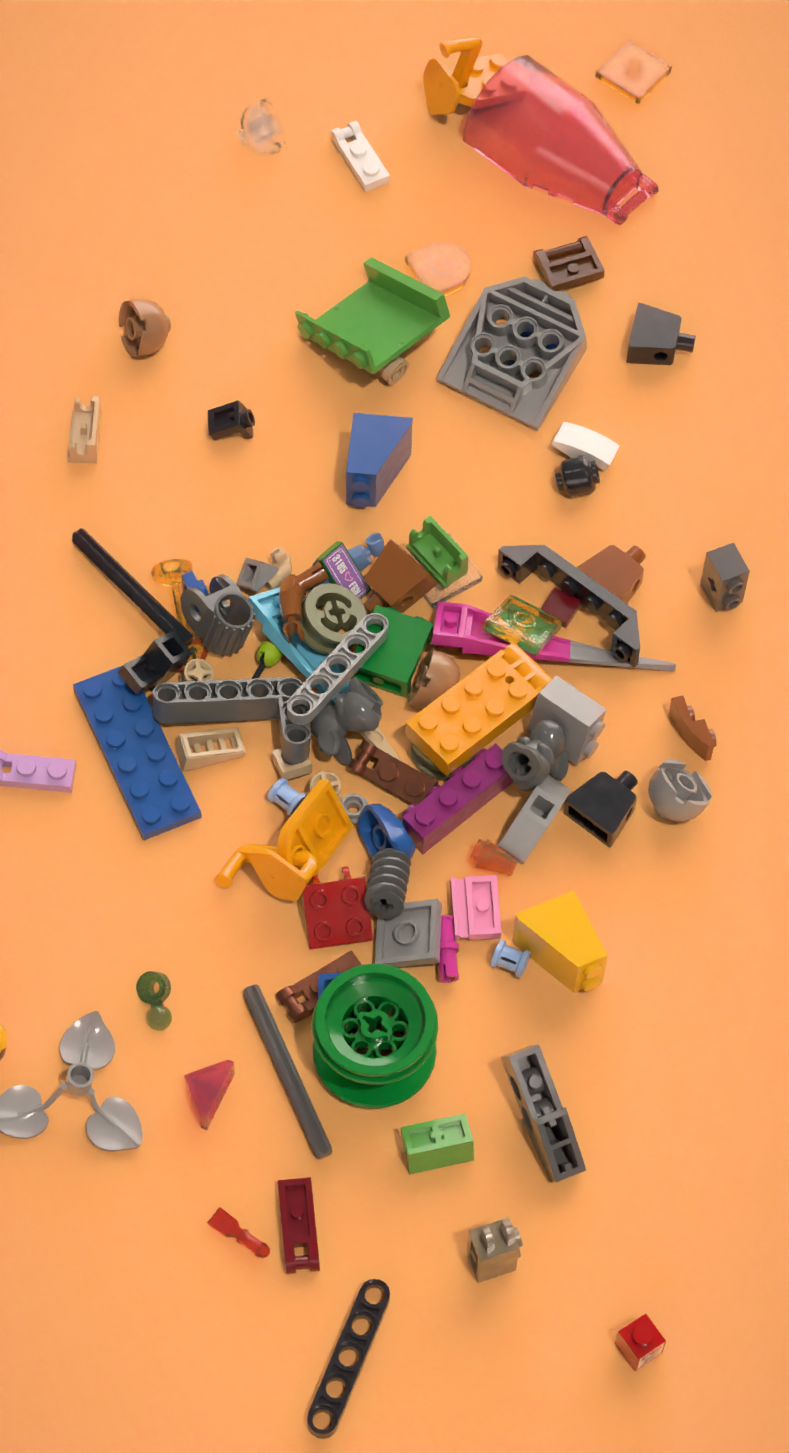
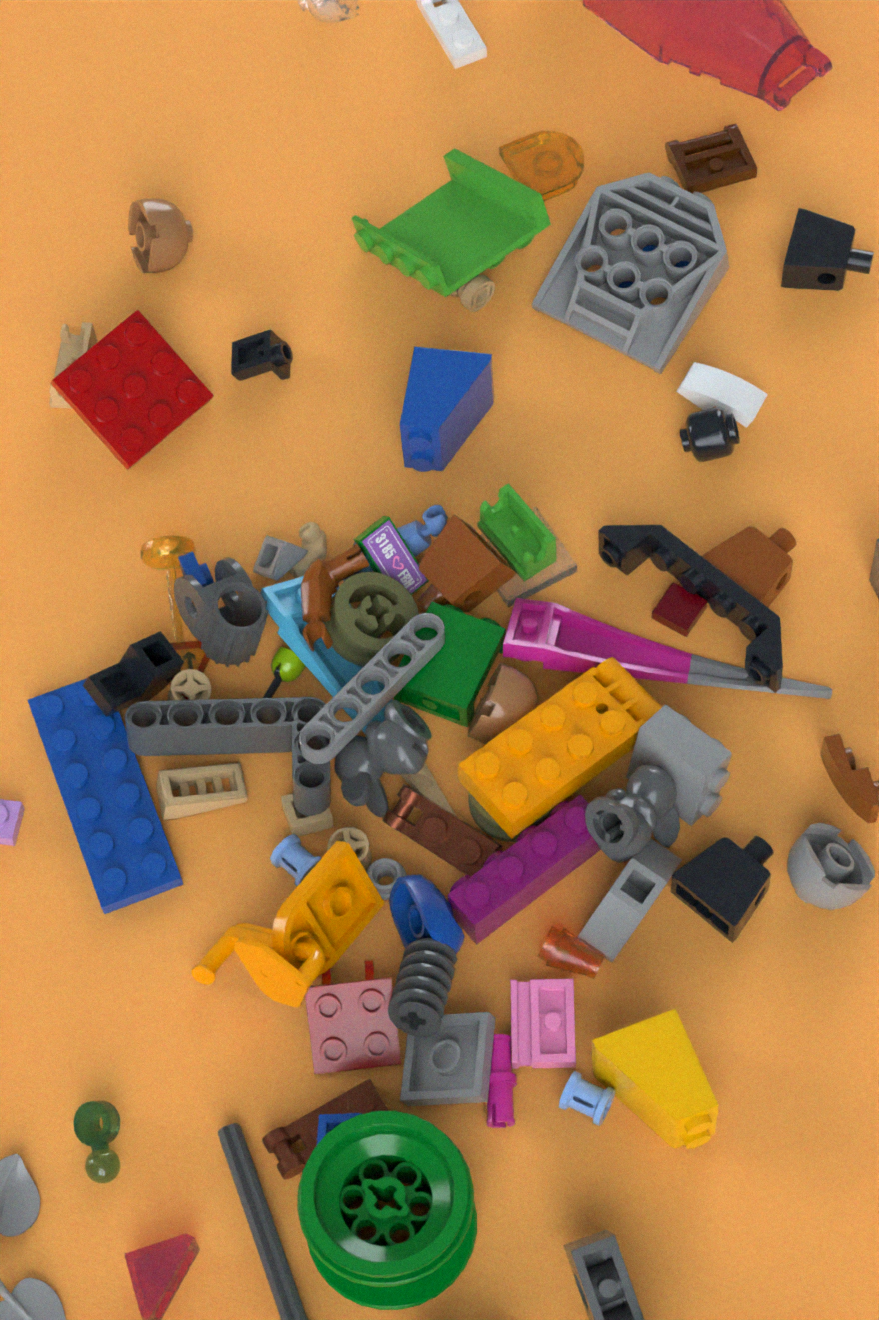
camera: 10 degrees right, 0 degrees up
(130, 585) = (114, 571): black axle -> none
(134, 448) = (132, 389): none -> red plate
(522, 624) = (626, 632): clear yellow tile -> none

